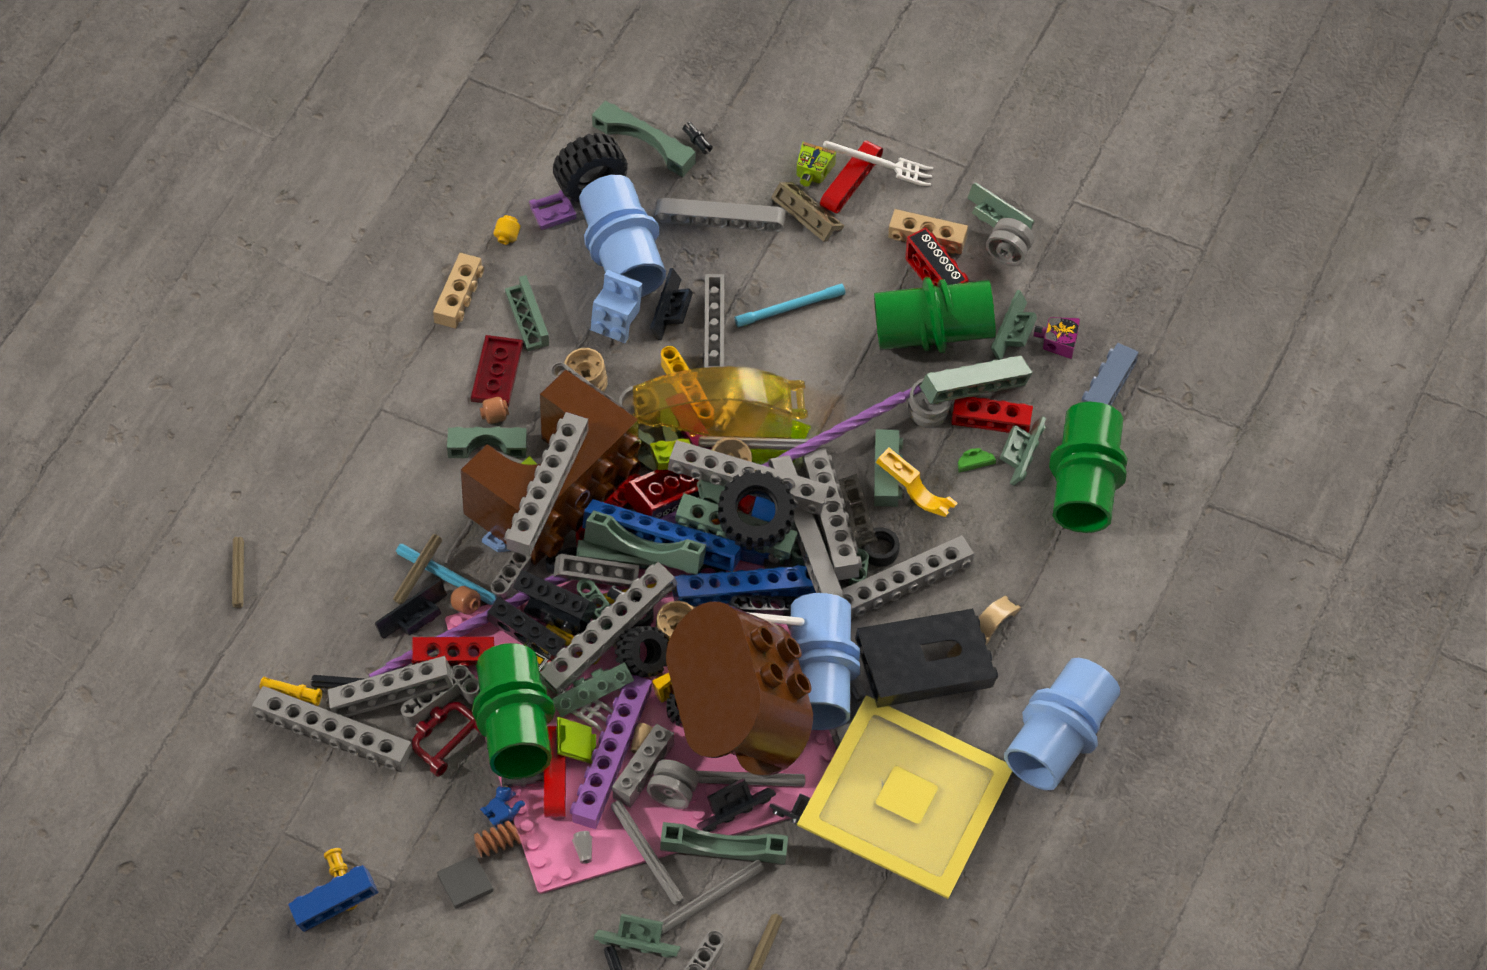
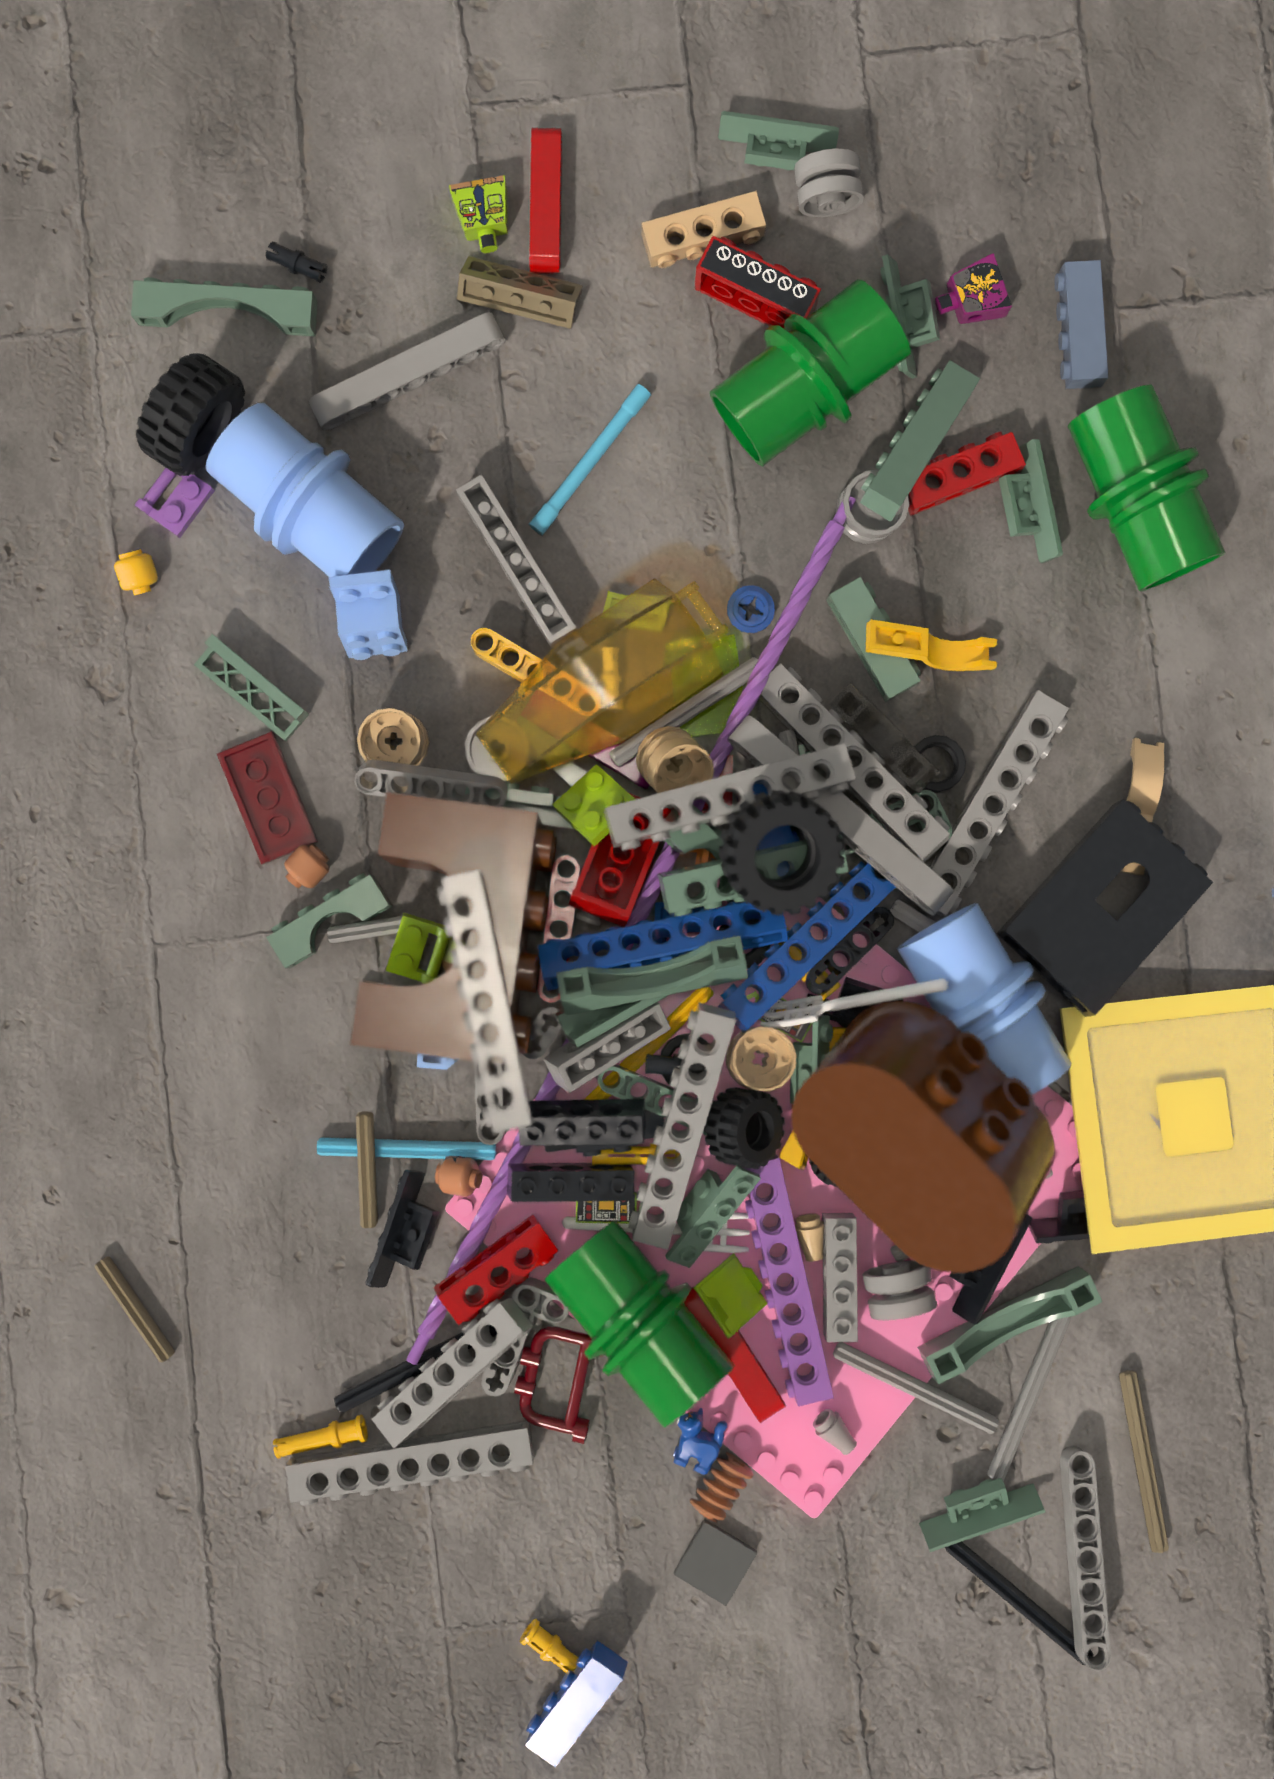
camera: 30 degrees left, 30 degrees up
(458, 290) = (115, 666): tan brick -> none
(671, 306) = (436, 557): black bracket -> none
(830, 413) = (744, 597): none -> blue gear
(898, 167) = (600, 148): white piece -> none
(975, 459) = (973, 553): bright green tile -> none

